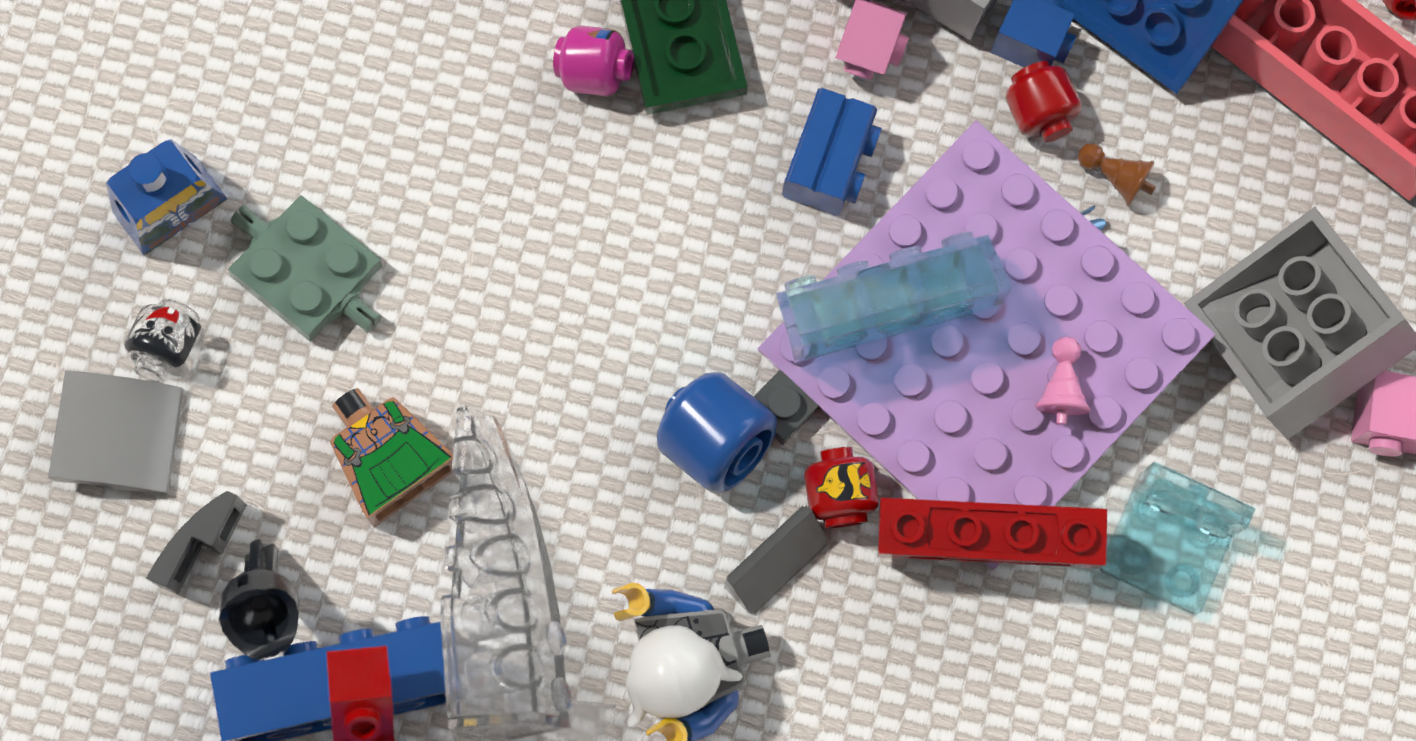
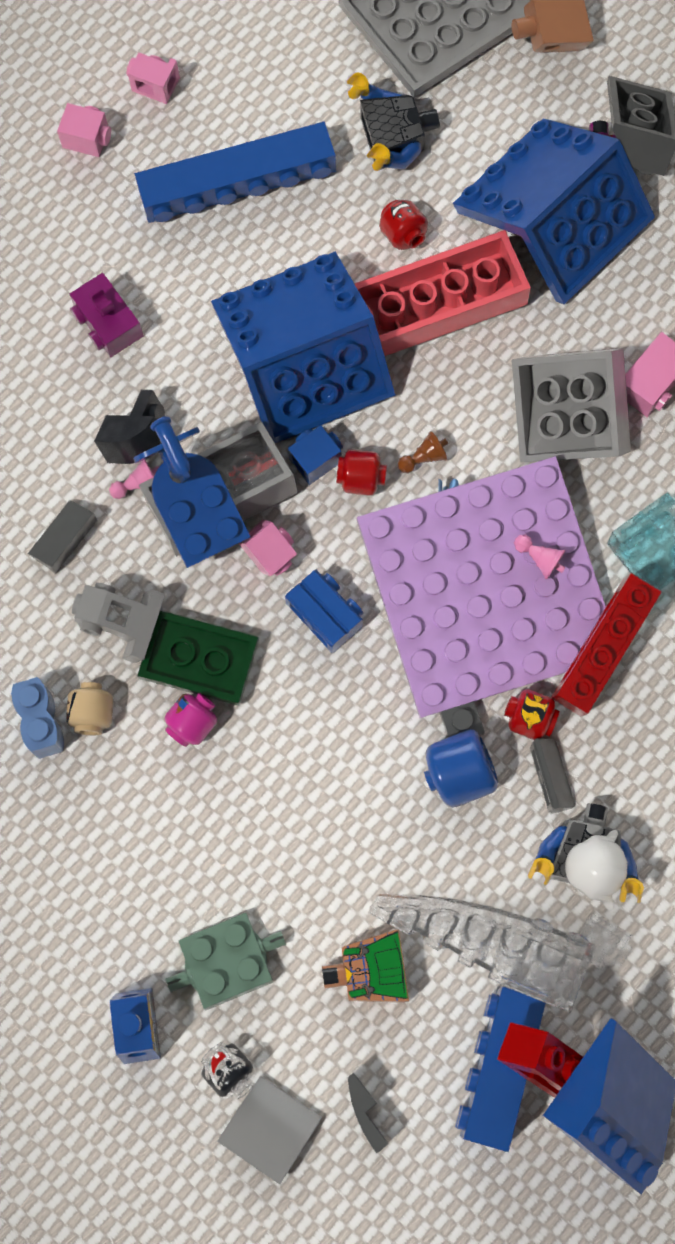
camera: 50 degrees left, 0 degrees up
(260, 606) = (434, 1088): black piece -> none
(892, 297) = (442, 623): clear light blue slope -> none

